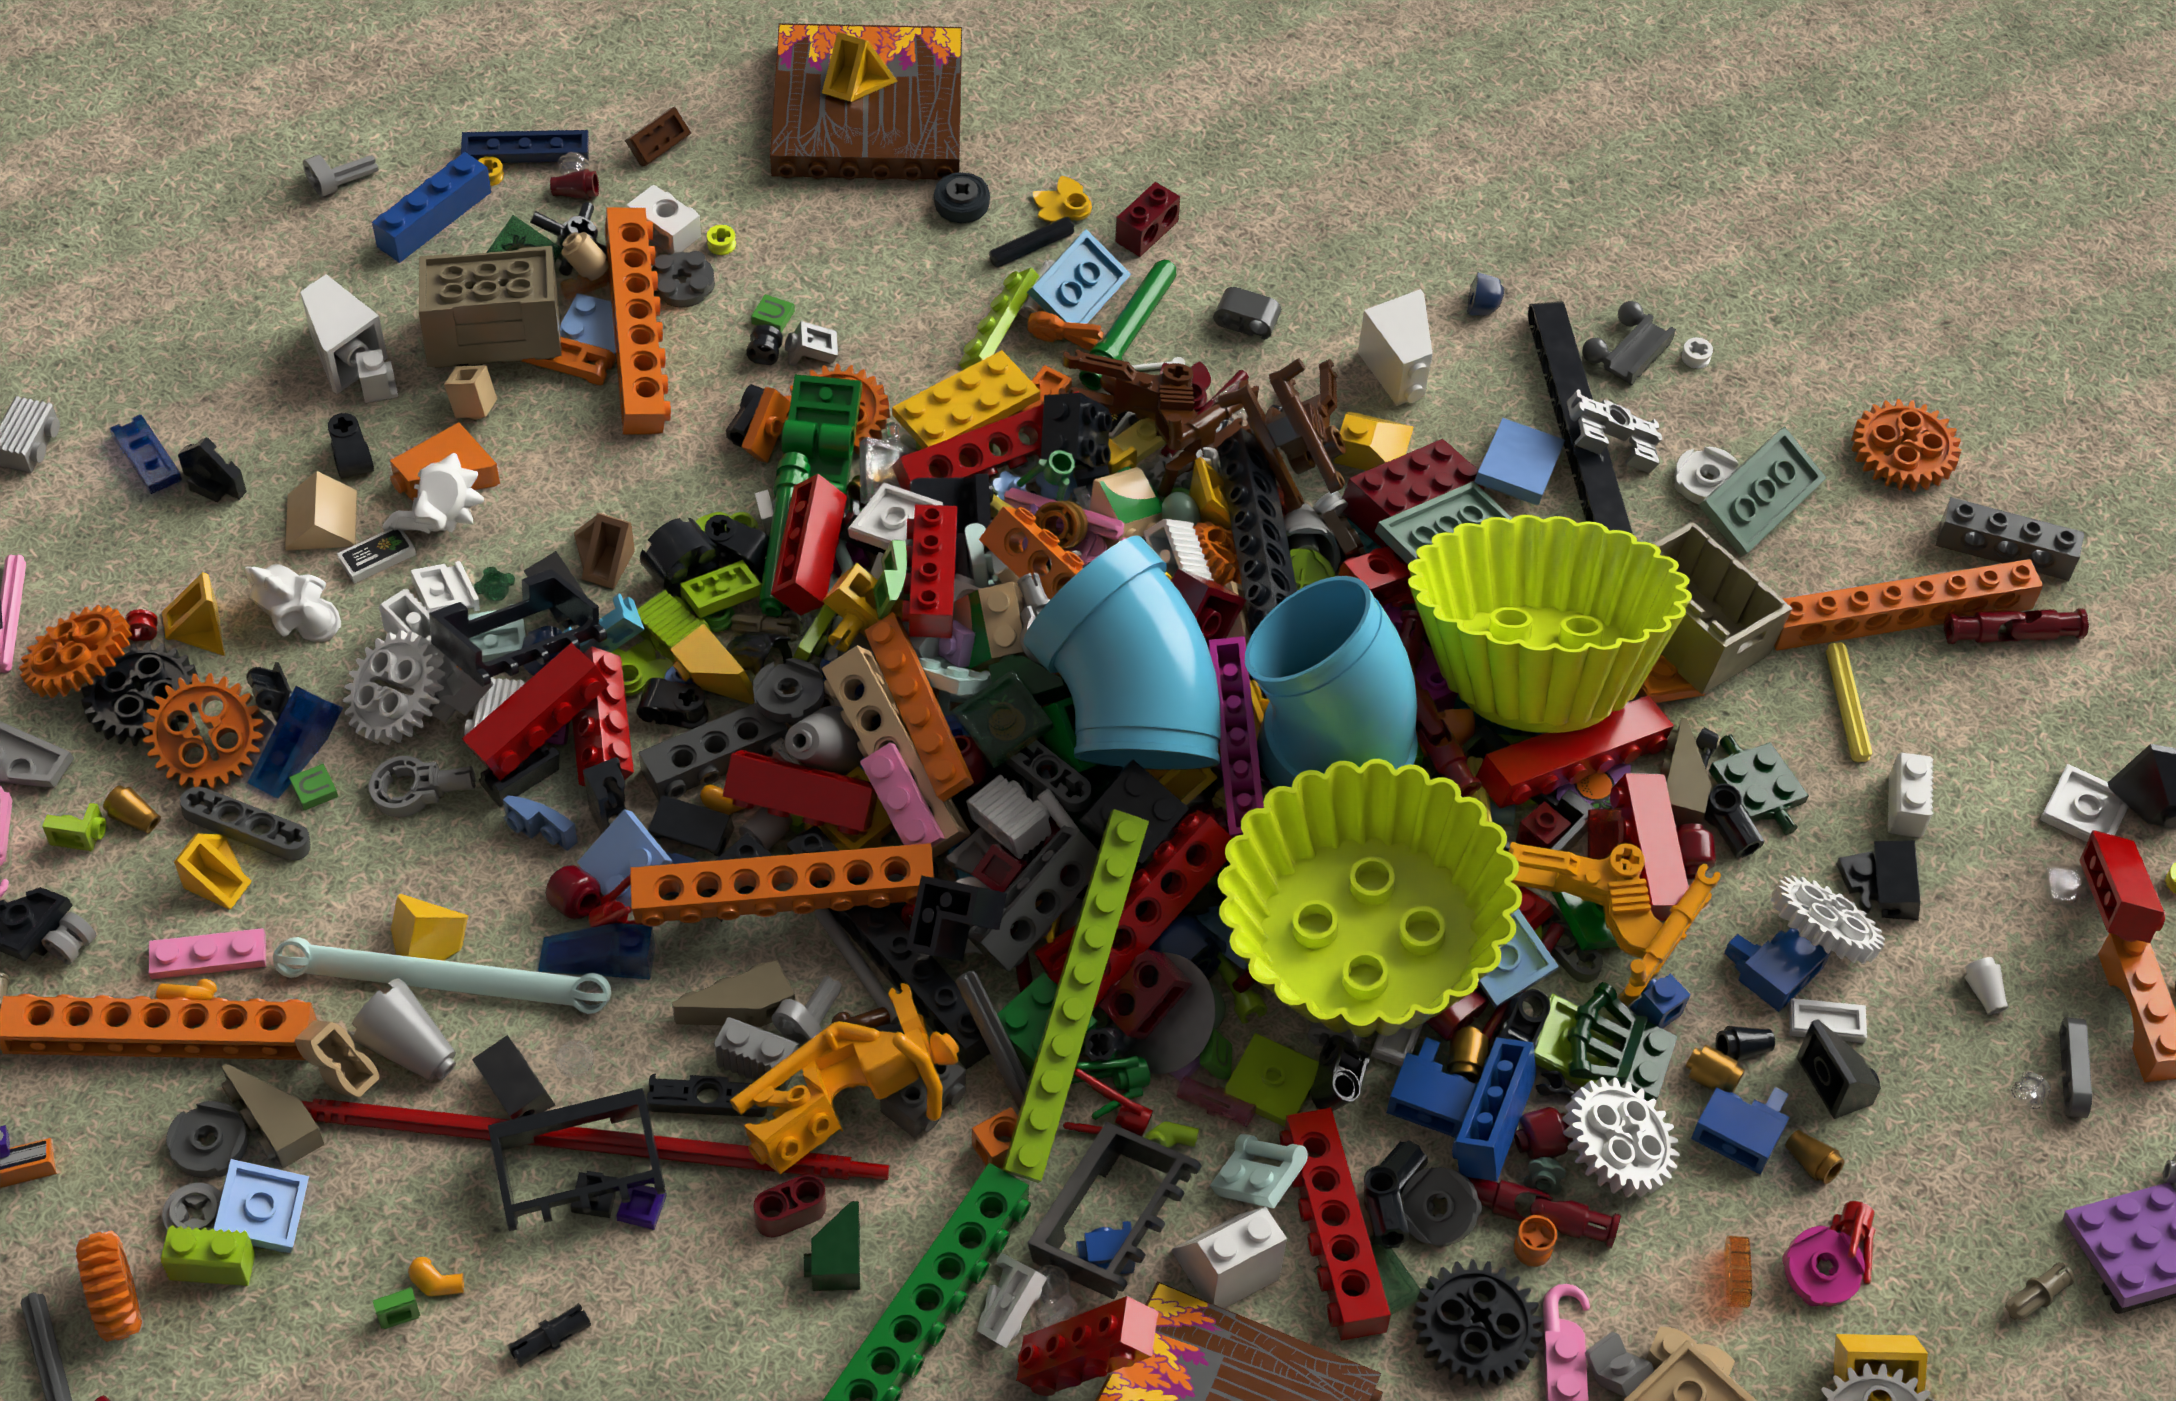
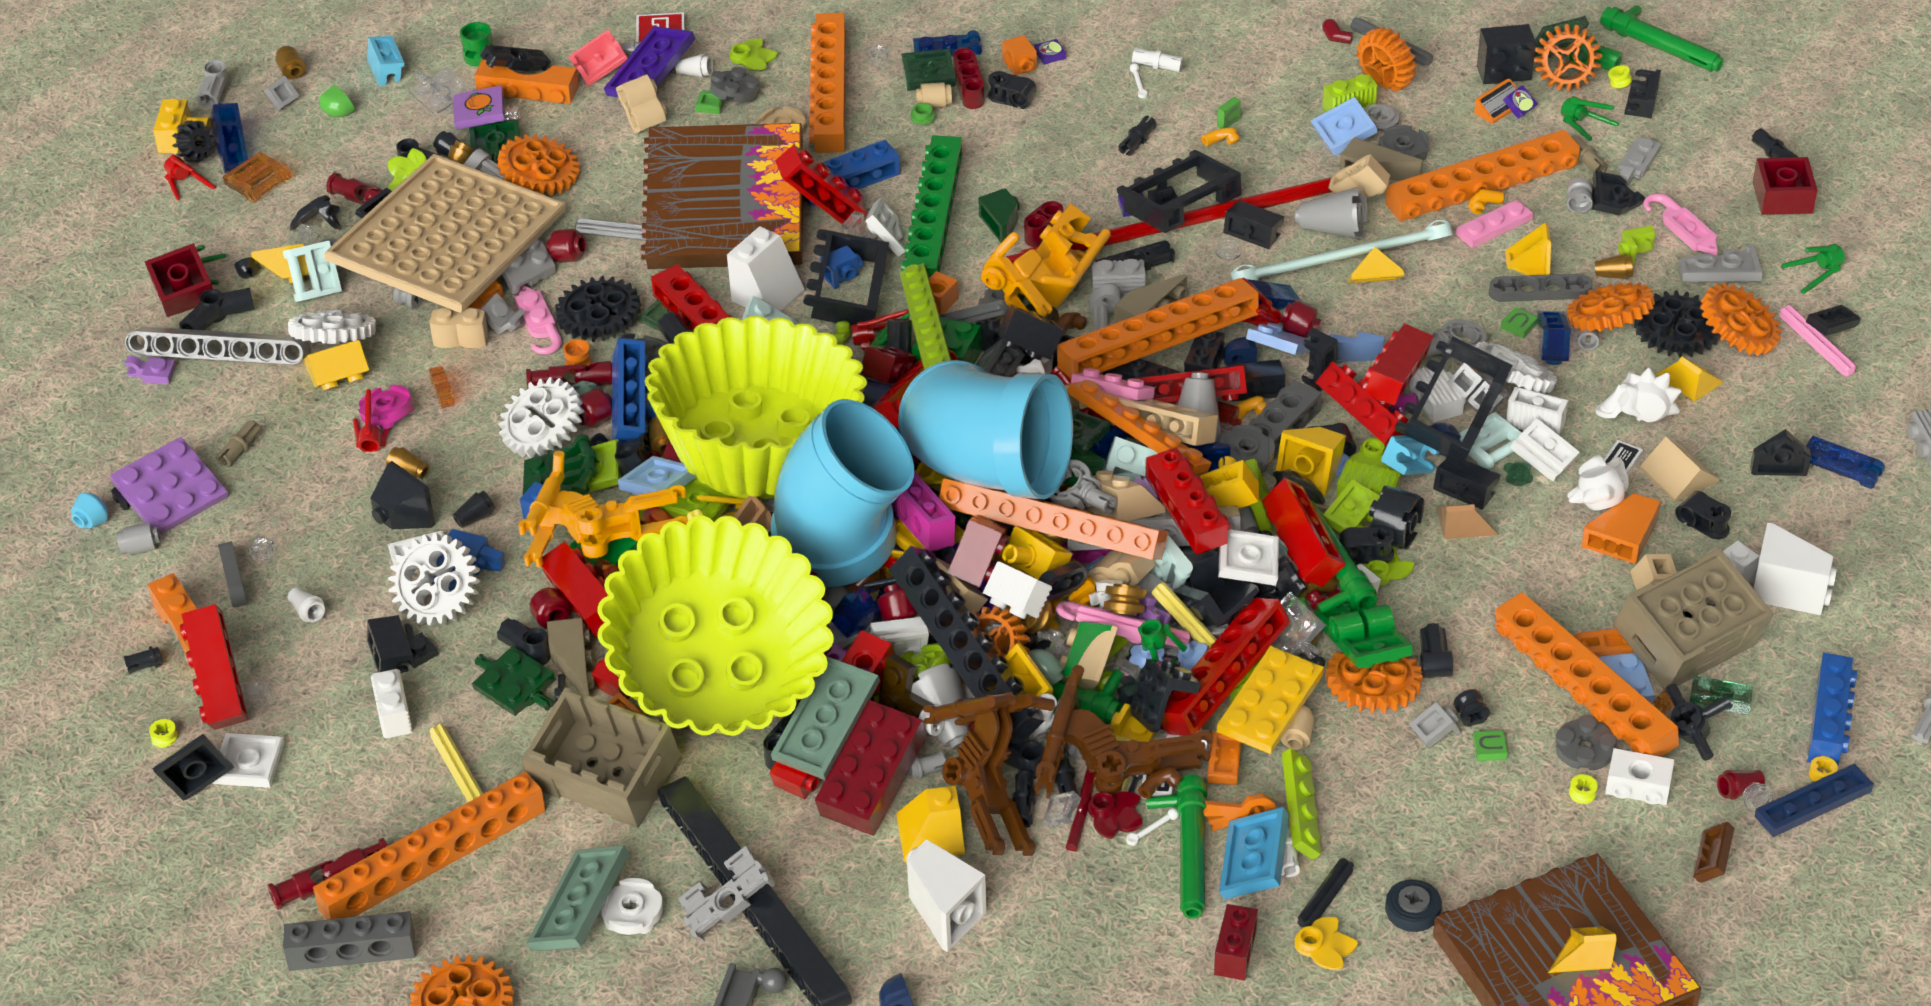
camera: 160 degrees right, 10 degrees down
(142, 625) = (1722, 359): red bush -> none
(269, 689) = (1601, 348): black hinge -> none
(585, 255) = (1664, 691): tan brick -> none
(766, 424) = (1416, 633): orange plate -> none
(892, 578) = (1211, 478): bright green slope -> none
(1247, 312) = (1097, 894): dark grey beam -> none
(1519, 461) = (795, 830): medium blue tile -> none
(1714, 1069) = (492, 482): pearl gold brick -> none
(1740, 1129) = (460, 457): blue hinge -> none

